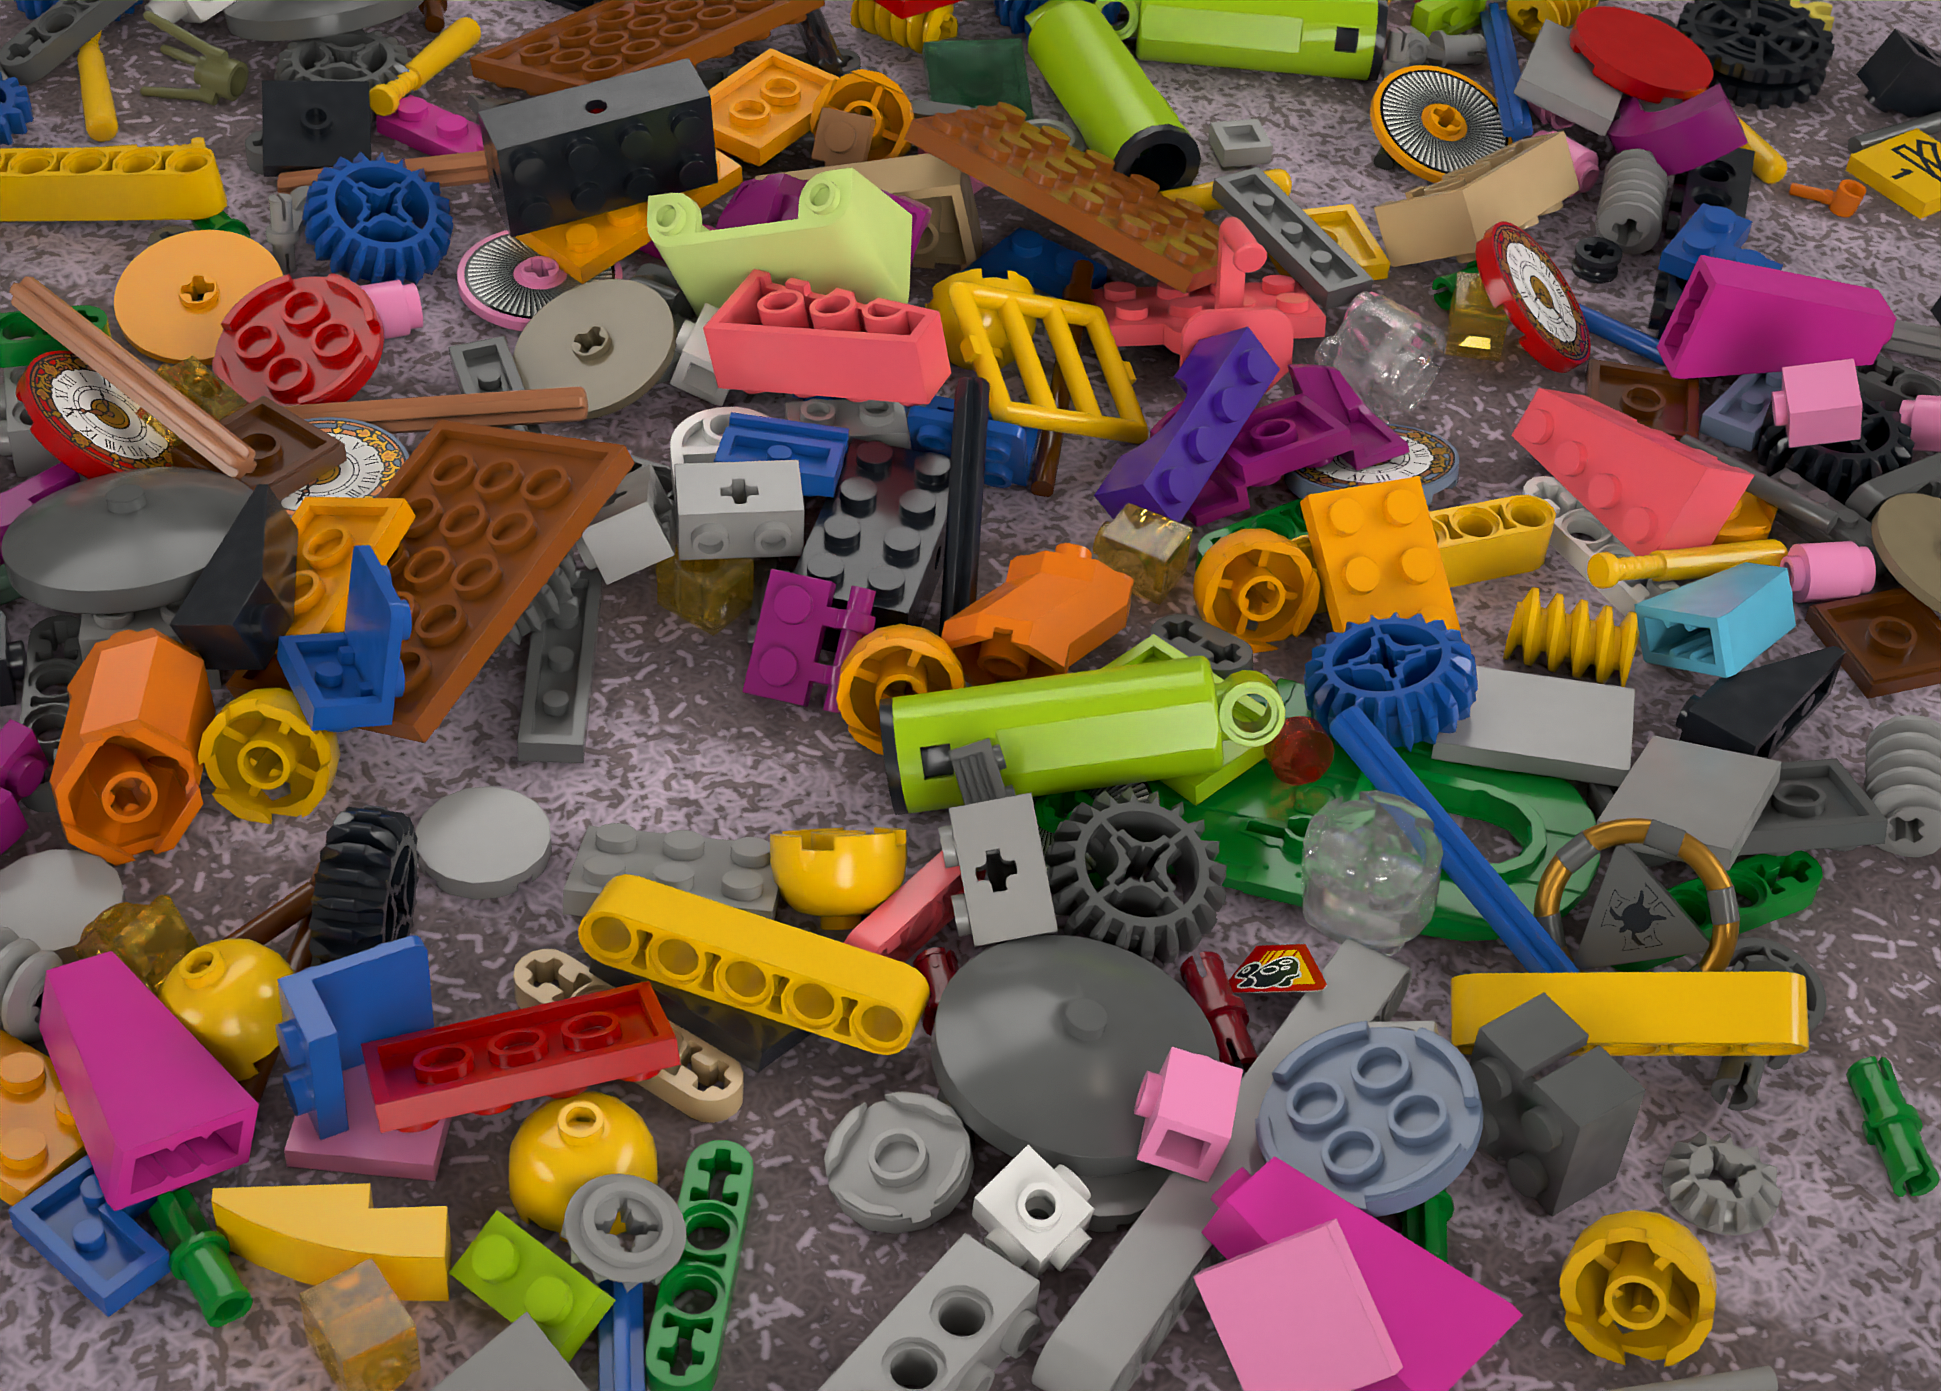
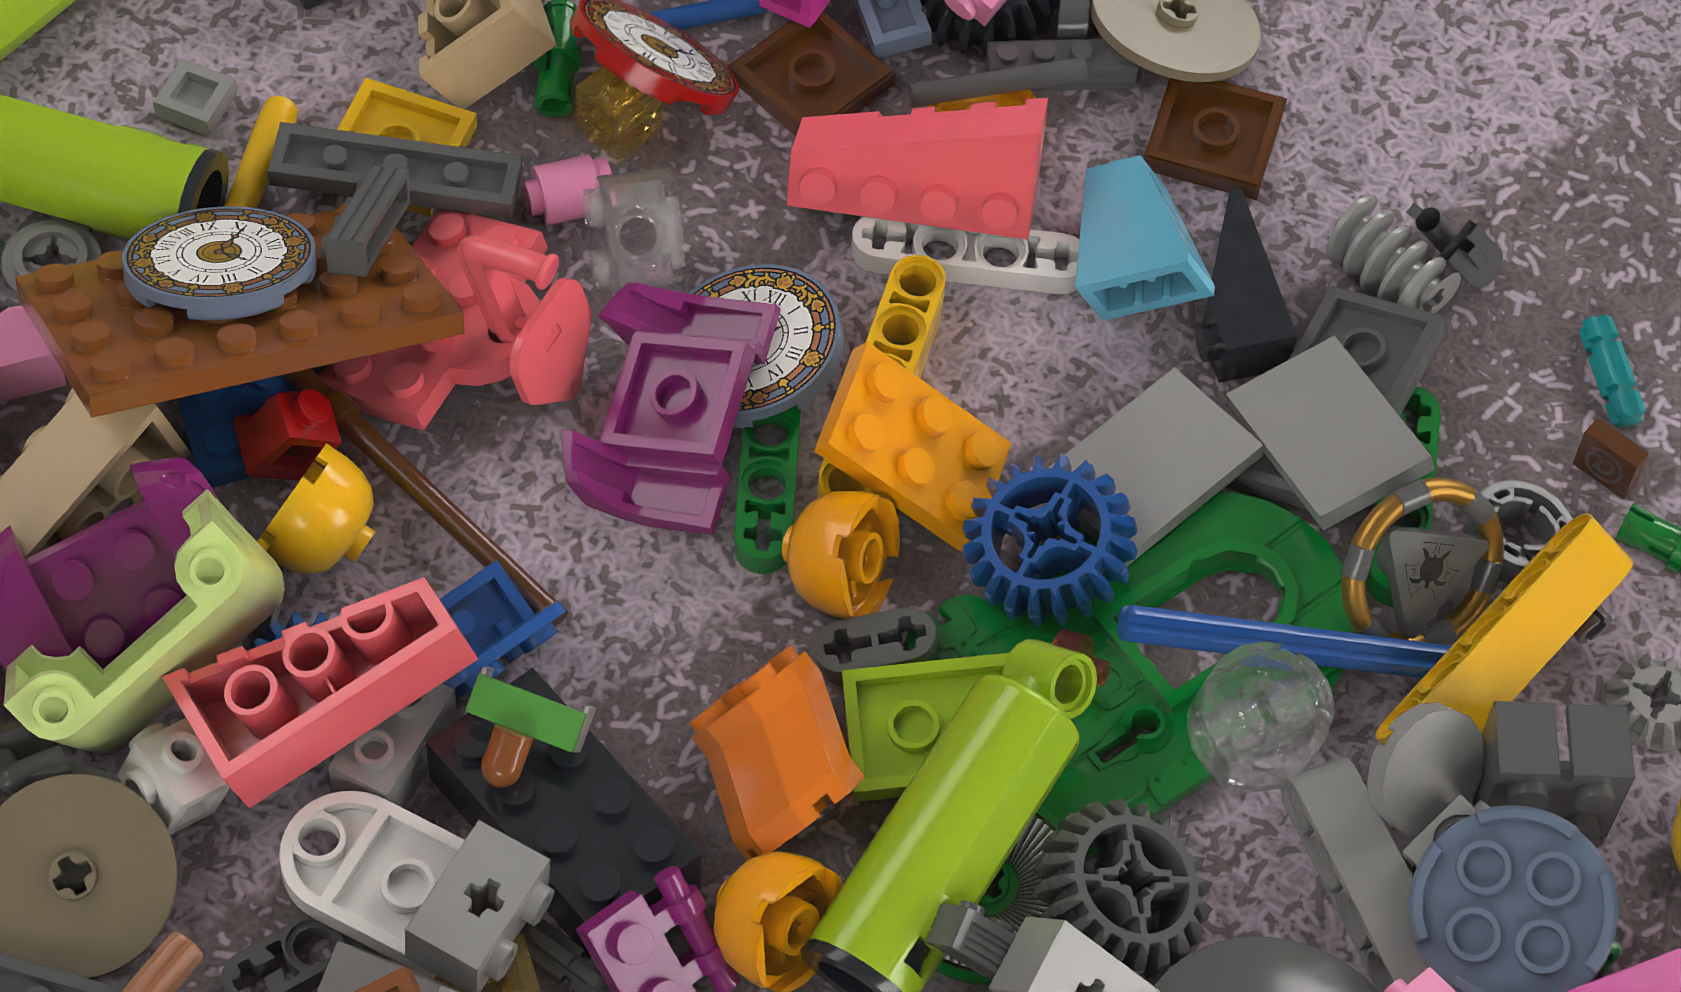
camera: 55 degrees left, 15 degrees up
(815, 446) = (420, 821): blue plate -> none
(908, 450) = (522, 717): none -> bright green piece
(965, 497) = (610, 722): black axle -> none
(1042, 267) = (286, 434): none -> red brick
(1056, 316) = (422, 562): yellow bar -> none
(1099, 160) = (219, 261): none -> tile
(1146, 549) = (721, 603): clear yellow brick -> none
(1168, 471) = (661, 526): dark purple arch -> none
(1205, 211) = (366, 221): none -> dark grey piece
(1221, 1008) = (1279, 921): dark red pin -> none
(1278, 970) = (1271, 852): sticker -> none
(1445, 982) = (1425, 766): none -> light grey tile
(1573, 637) = (1066, 356): yellow piece -> none
(1680, 564) = (1052, 194): yellow piece -> none
(1829, 571) = (1122, 114): bright pink brick -> none
(1913, 1023) = (1610, 458): none -> reddish brown tile

